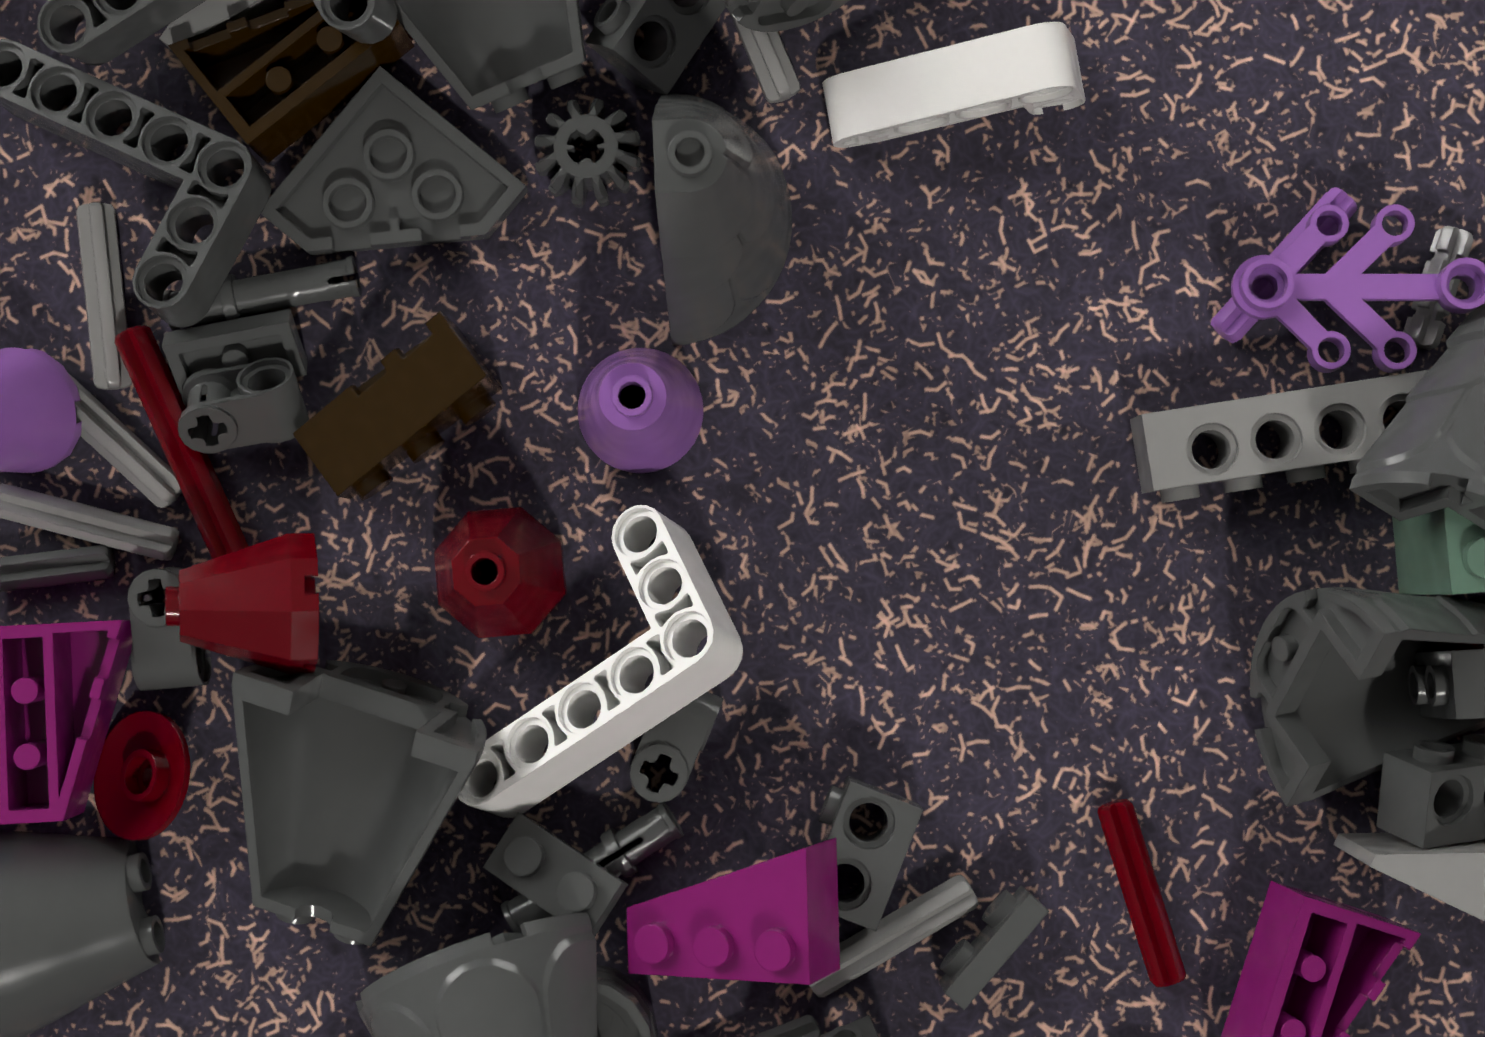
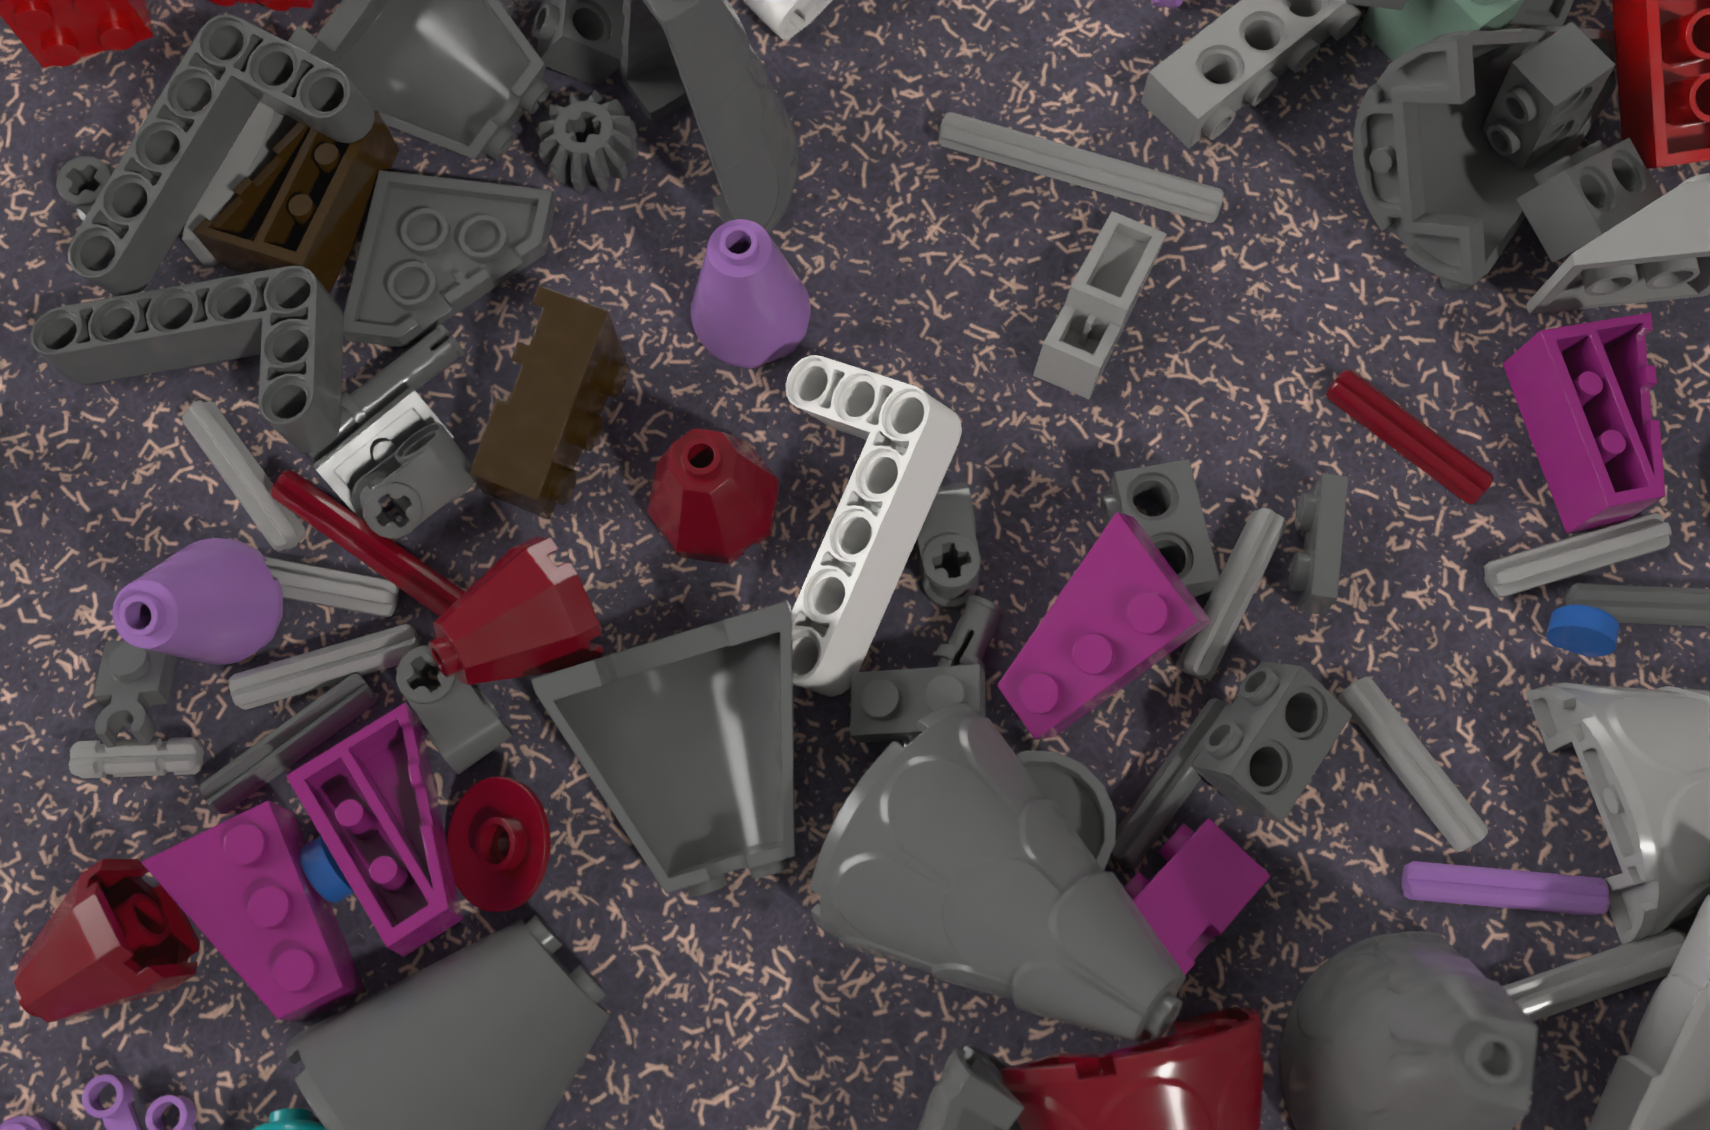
camera: 30 degrees left, 15 degrees down
(954, 603) = (1099, 305): none -> light grey slope
(1026, 454) = (1080, 167): none -> light grey axle

